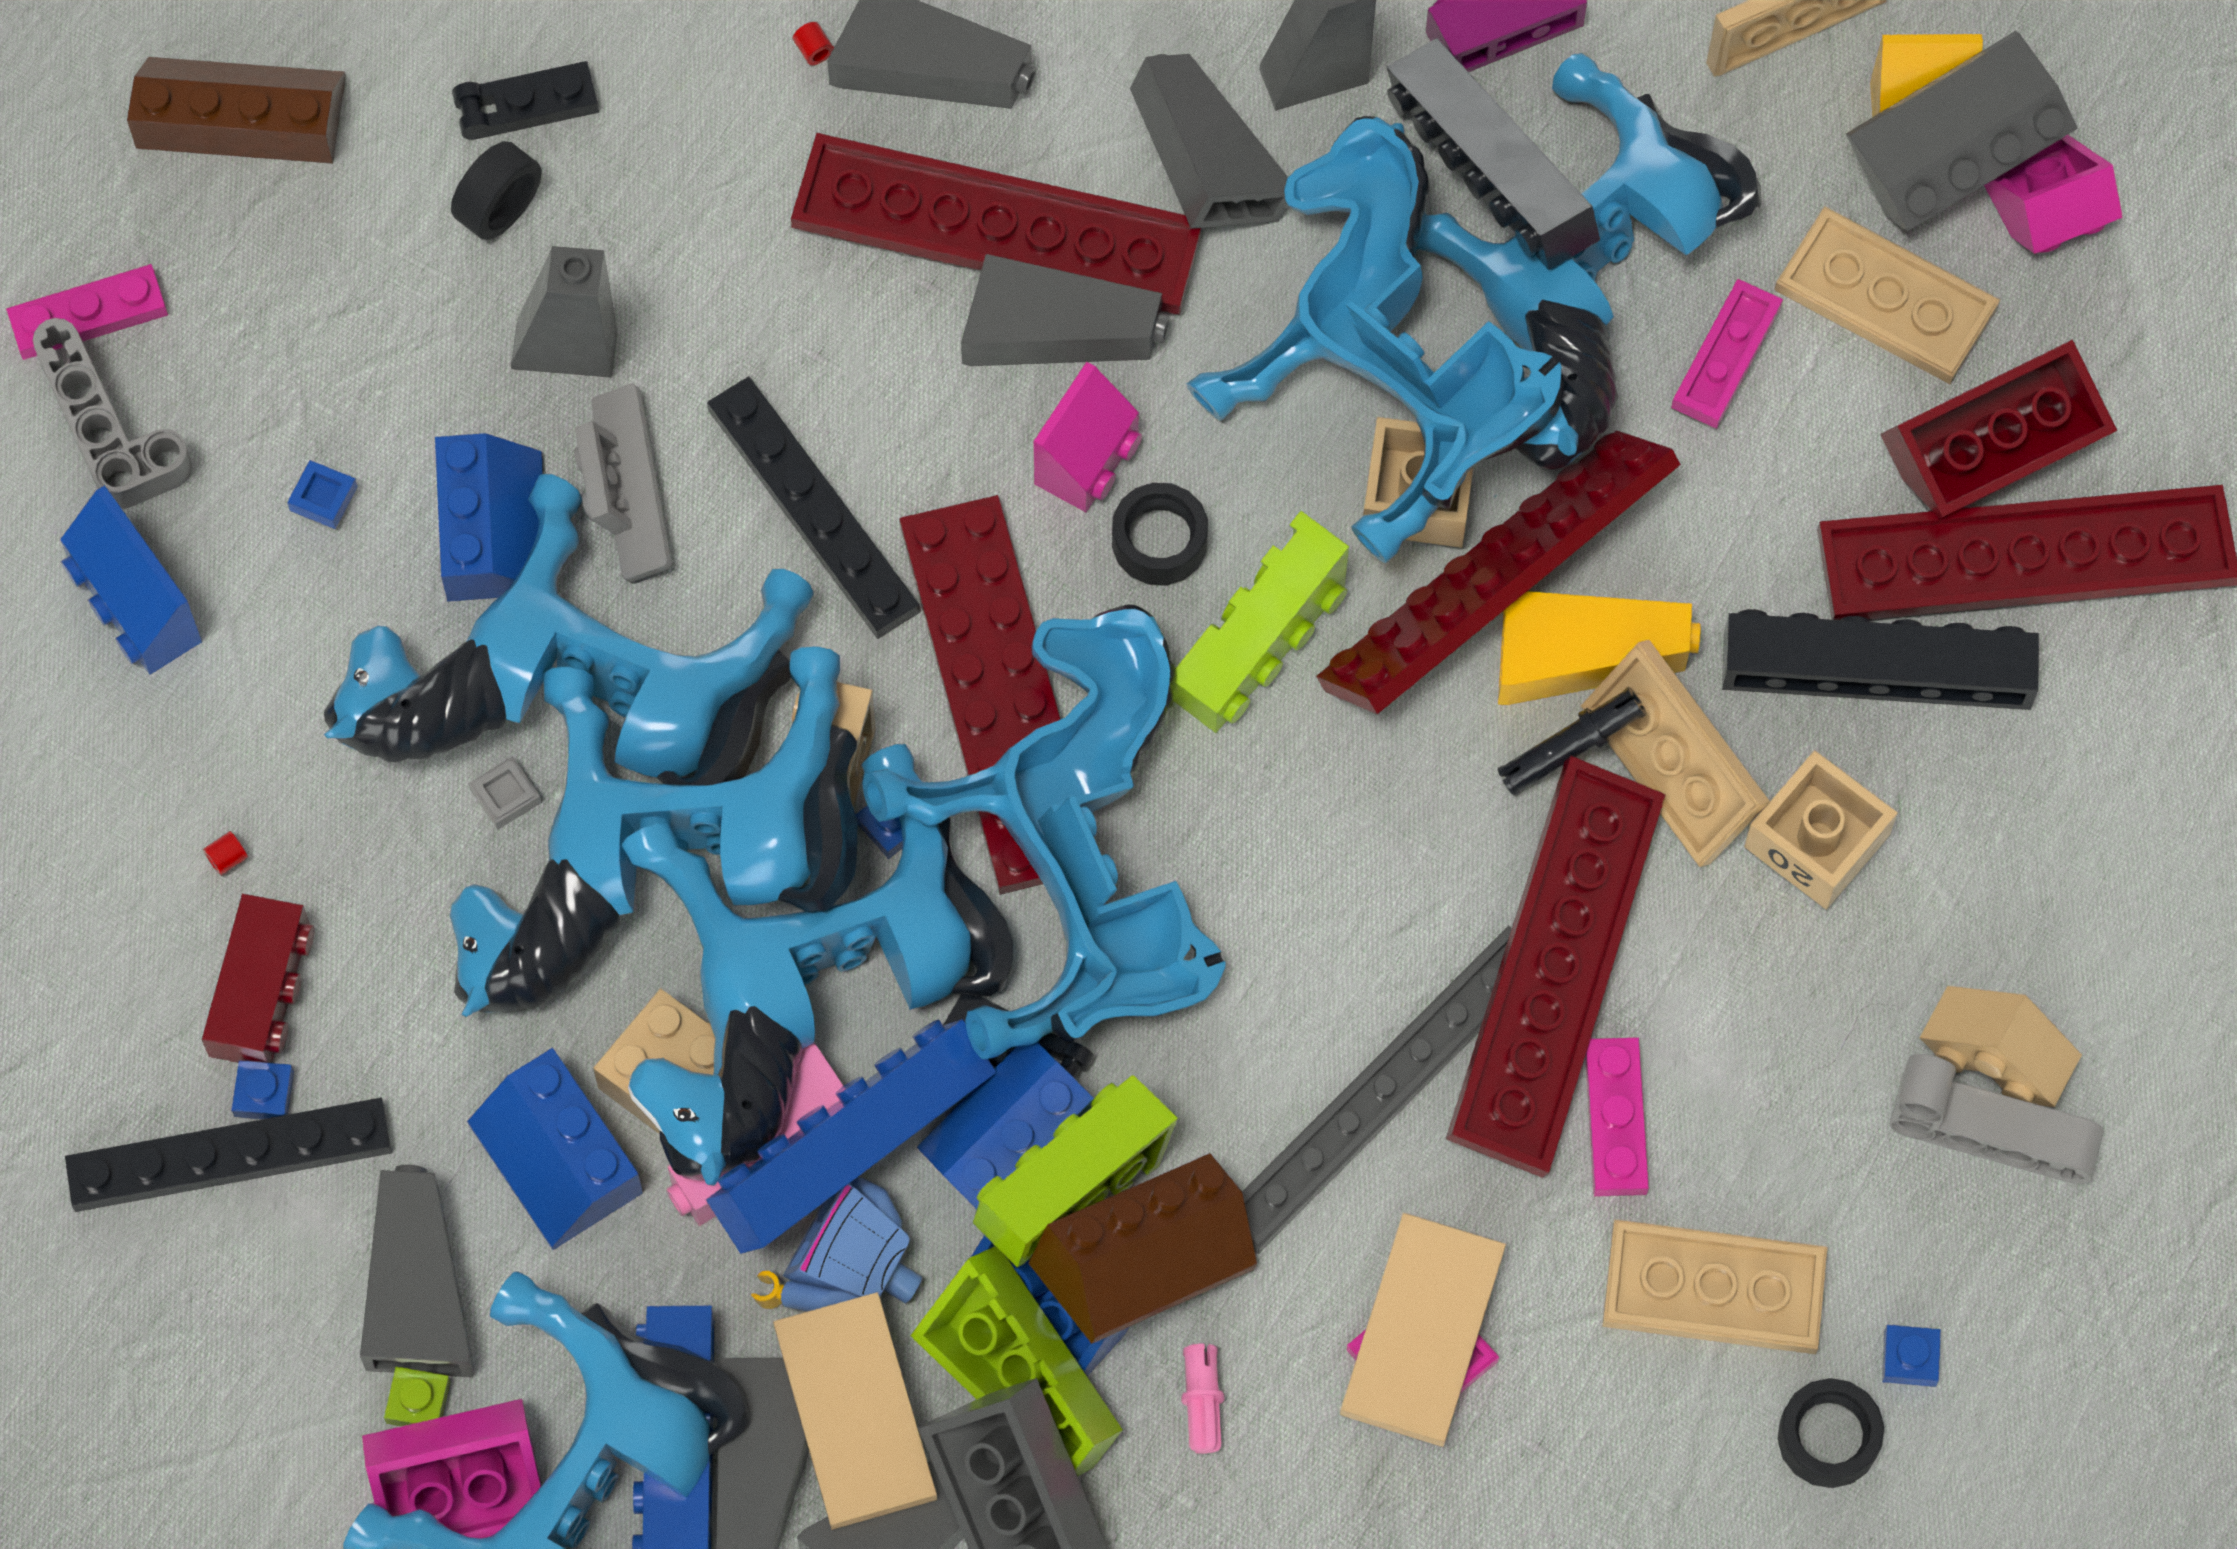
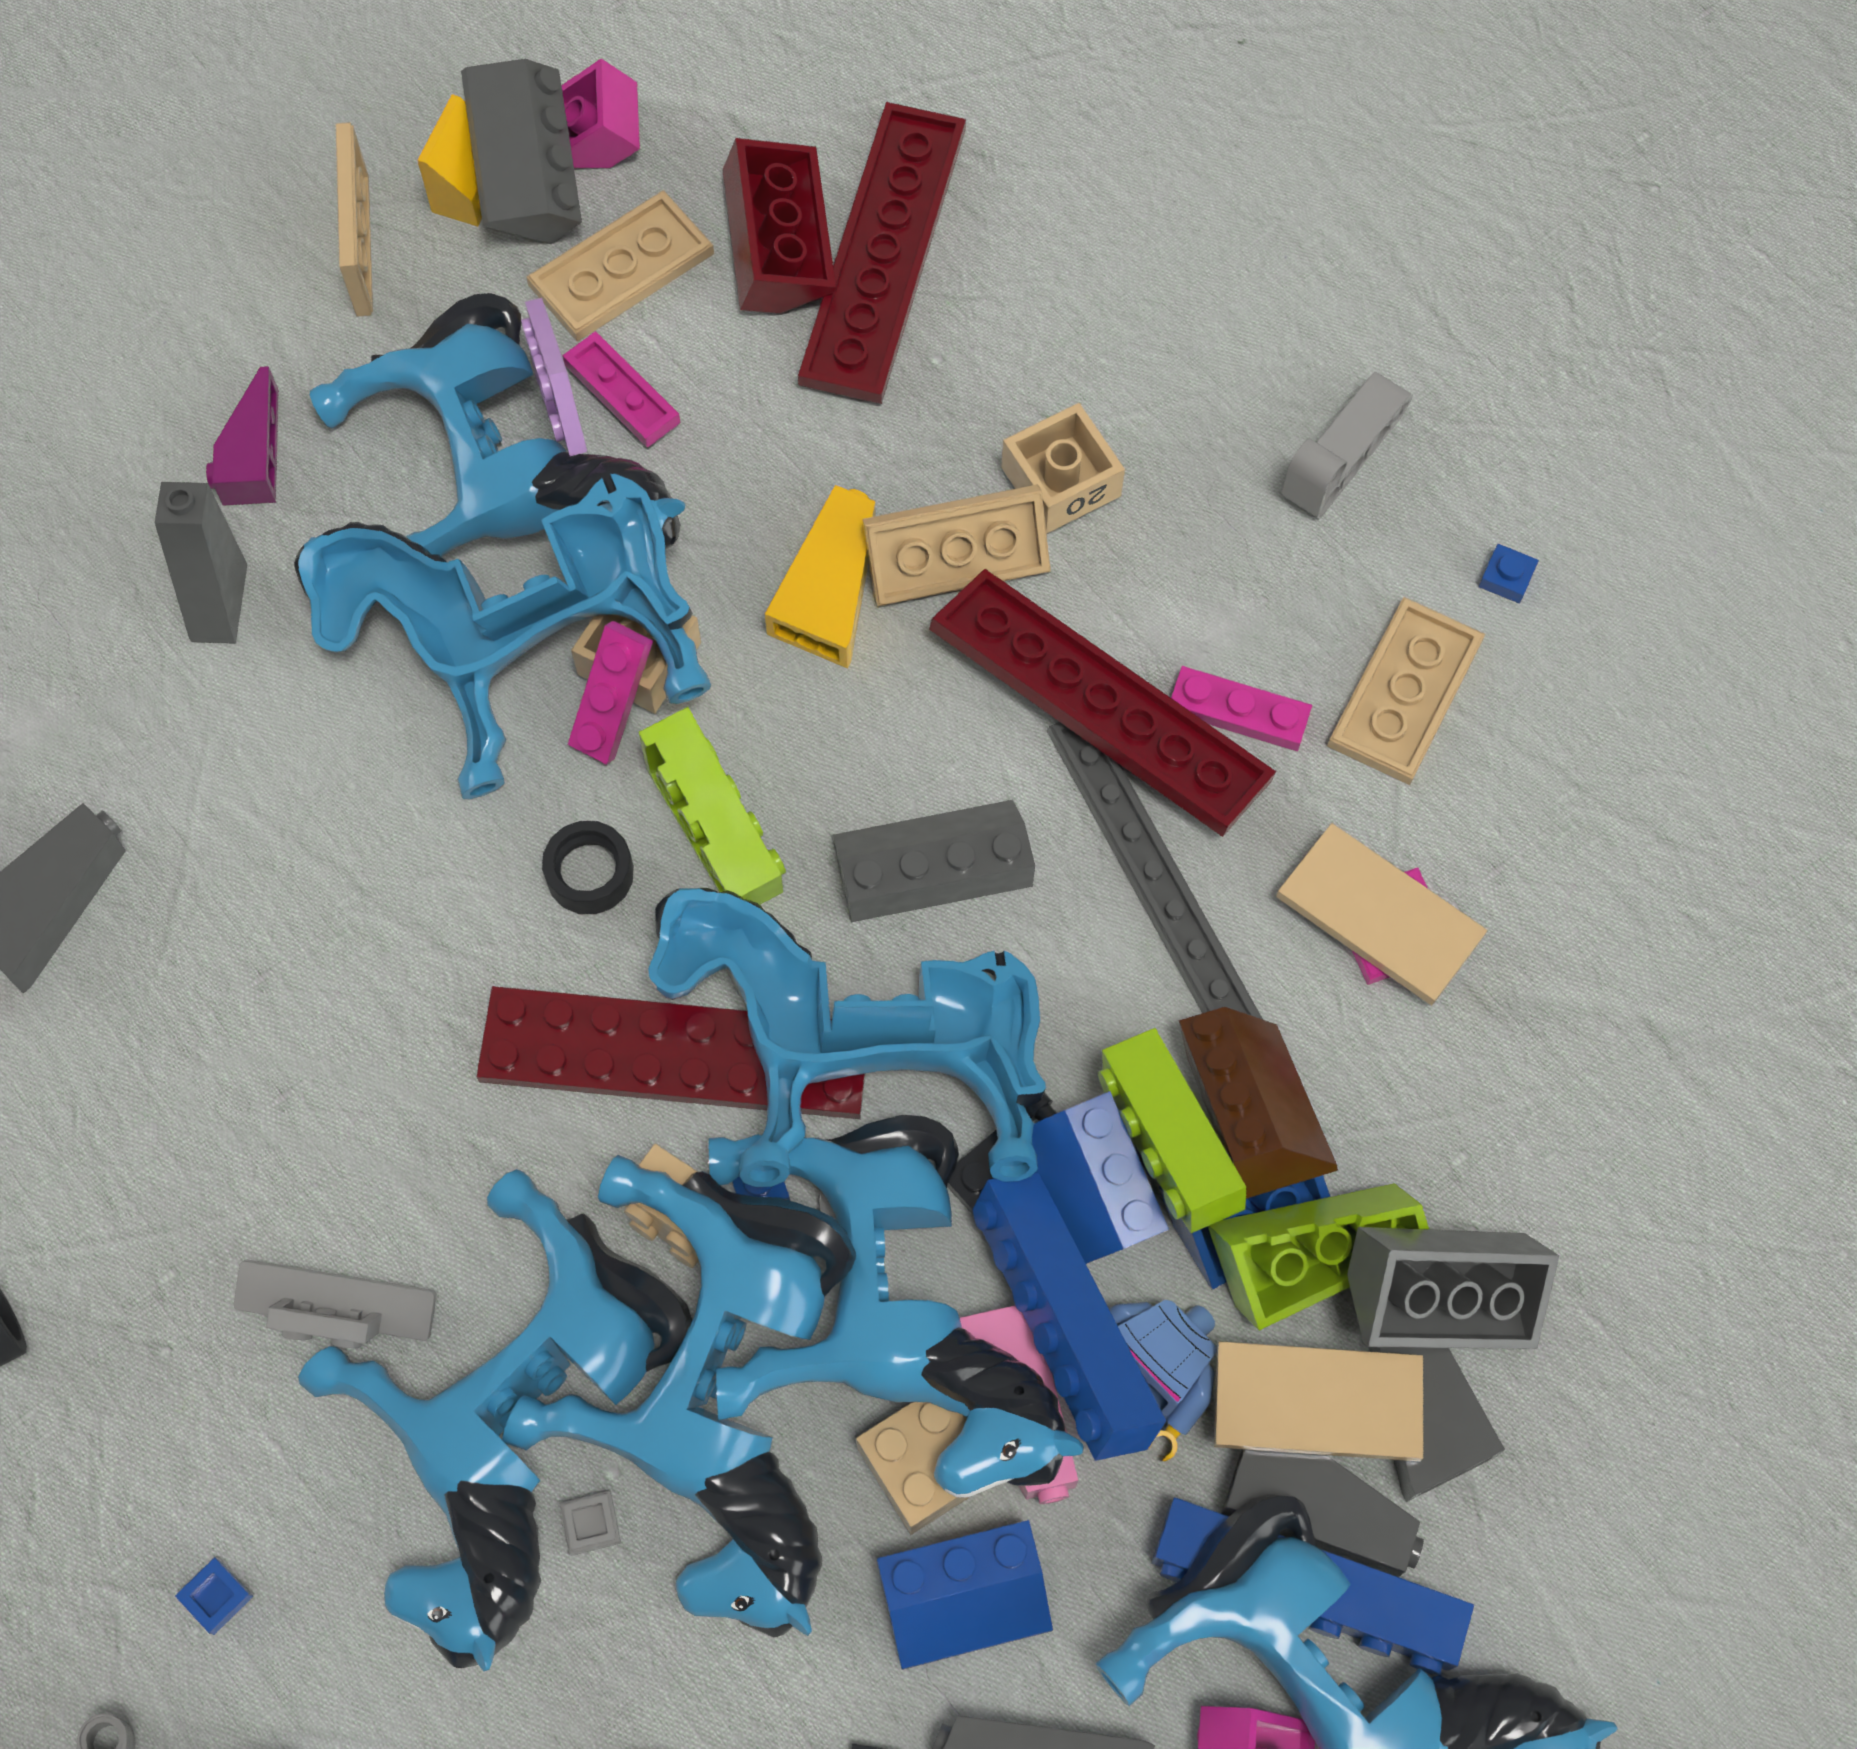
camera: 70 degrees left, 0 degrees up
(484, 512) = (309, 1444): blue slope -> none
(568, 317) = (152, 1295): dark grey slope -> none
(813, 507) = (428, 1149): black plate -> none
(970, 212) = (230, 900): dark red plate -> none
(1057, 317) = (347, 877): dark grey slope -> none
(1085, 440) = (480, 892): dark pink slope -> none
(1202, 1398) = (1381, 1110): bright pink axle -> none
(1206, 147) = (247, 700): dark grey slope -> none
(1305, 860) = (934, 860): none -> dark grey slope
(1347, 472) = (610, 692): none -> dark pink plate
(1492, 154) = (376, 476): brick -> none
(1497, 571) = (747, 623): dark red plate -> none
(1573, 740) = (916, 614): black pin -> none
(1679, 273) = (552, 377): none -> lavender plate
(1853, 1399) = (1571, 622): black tyre -> none
(1880, 660) = (930, 380): black brick -> none
(2003, 1039) = (1284, 407): tan brick -> none

